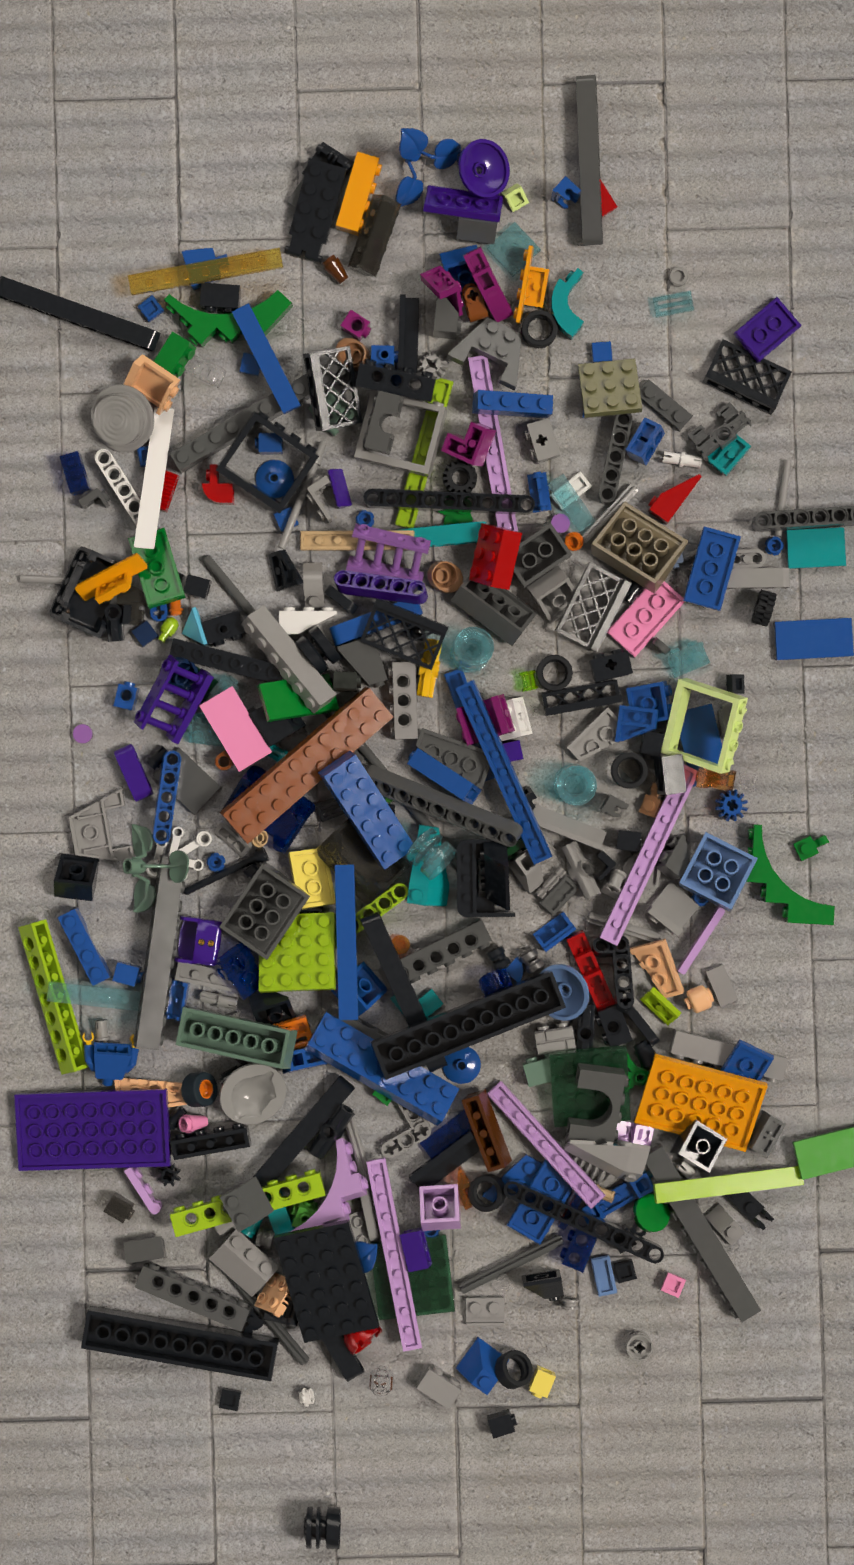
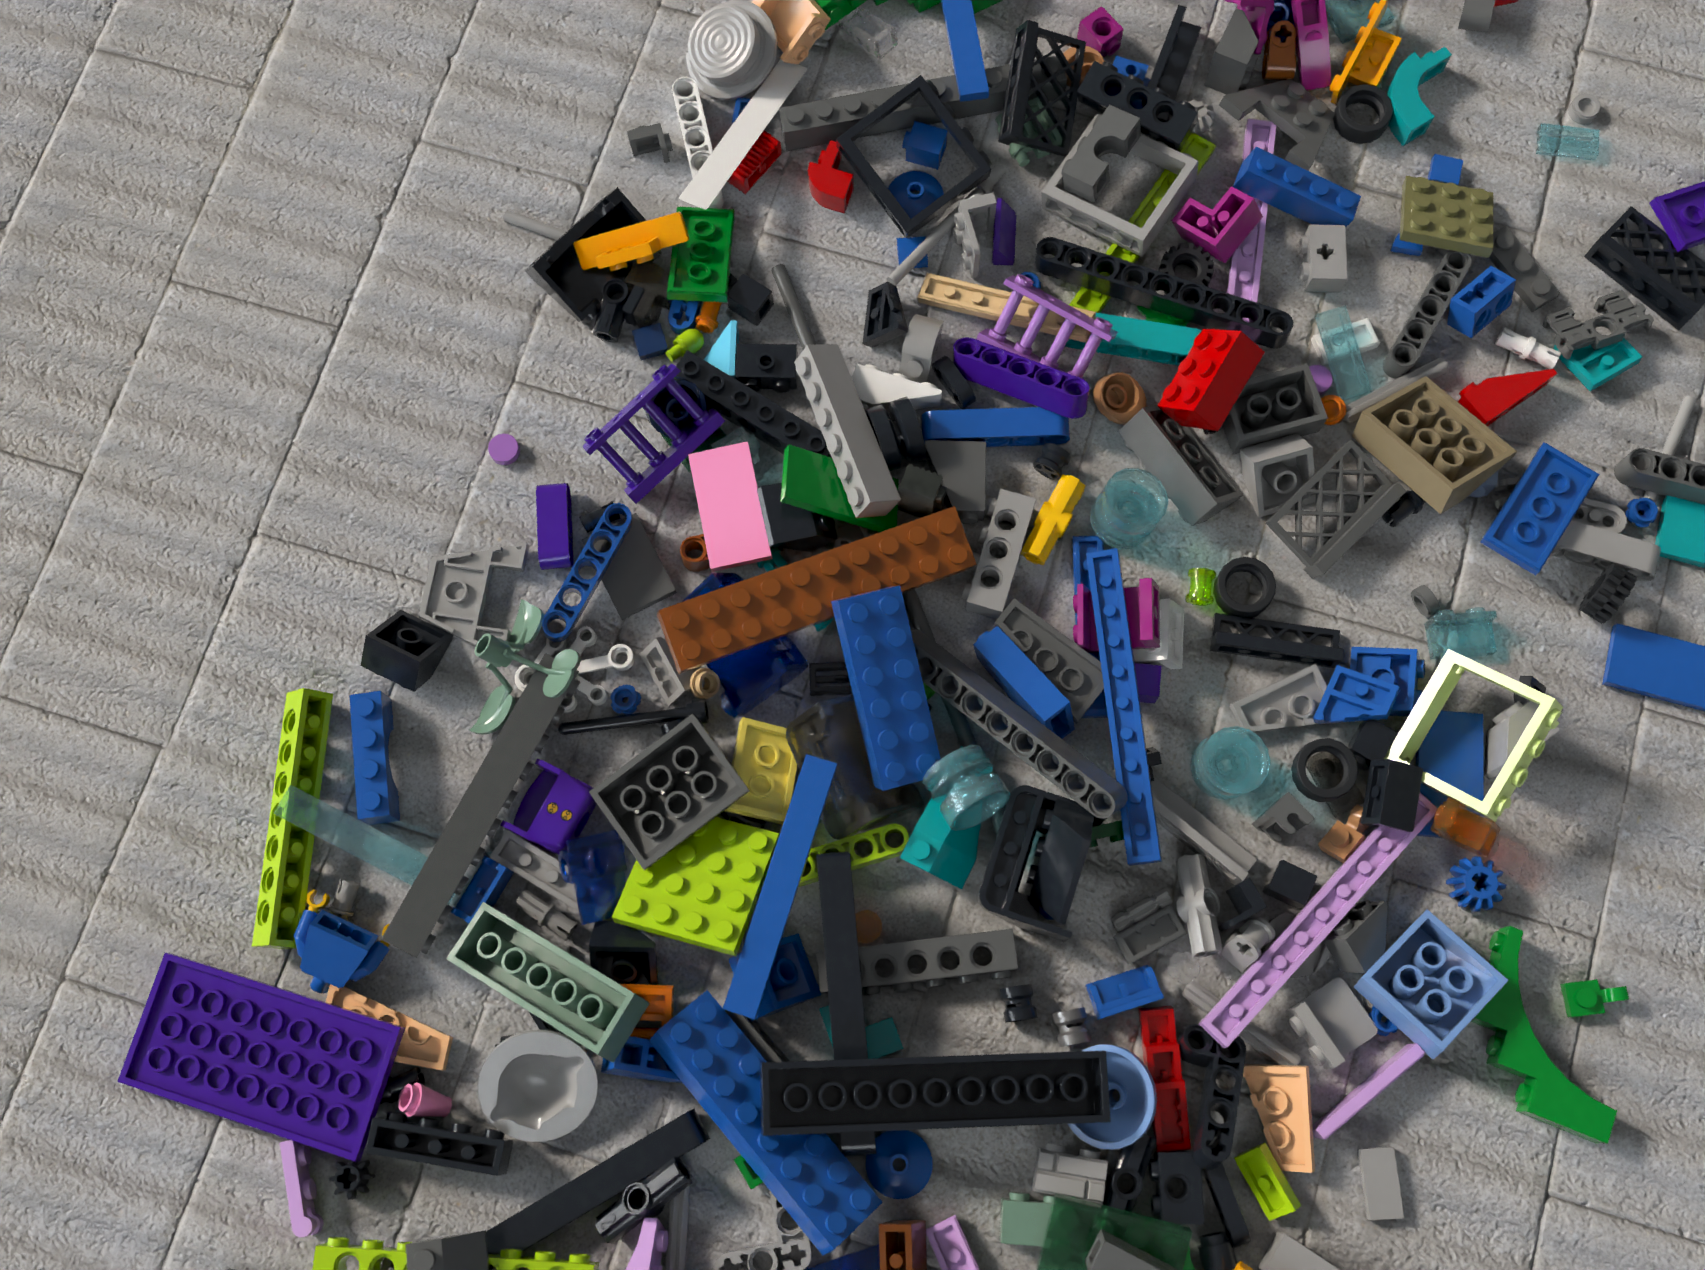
camera: 20 degrees right, 15 degrees down
(75, 473) = (637, 97): clear blue brick -> none
(120, 1208) = (249, 1205): clear smoke brick -> none
(127, 974) = (420, 822): blue brick -> none
(130, 704) = (587, 402): blue brick -> none
(199, 1089) = (455, 1048): black wheel -> none
(202, 732) = (679, 501): clear light blue bracket -> none
(249, 365) = (934, 42): blue tile -> none
(408, 617) = (1052, 430): black fence -> none
(494, 981) = (1001, 1037): clear blue gear -> none
(515, 969) = (1039, 1033): blue tile -> none
(526, 872) = (1110, 876): light grey slope -> none
(539, 491) = (1302, 313): blue hinge -> none
(622, 668) = (1321, 612): black brick -> none
(645, 618) = (1410, 554): bright pink tile -> none
(699, 999) = (1337, 1192): light nougat head -> none

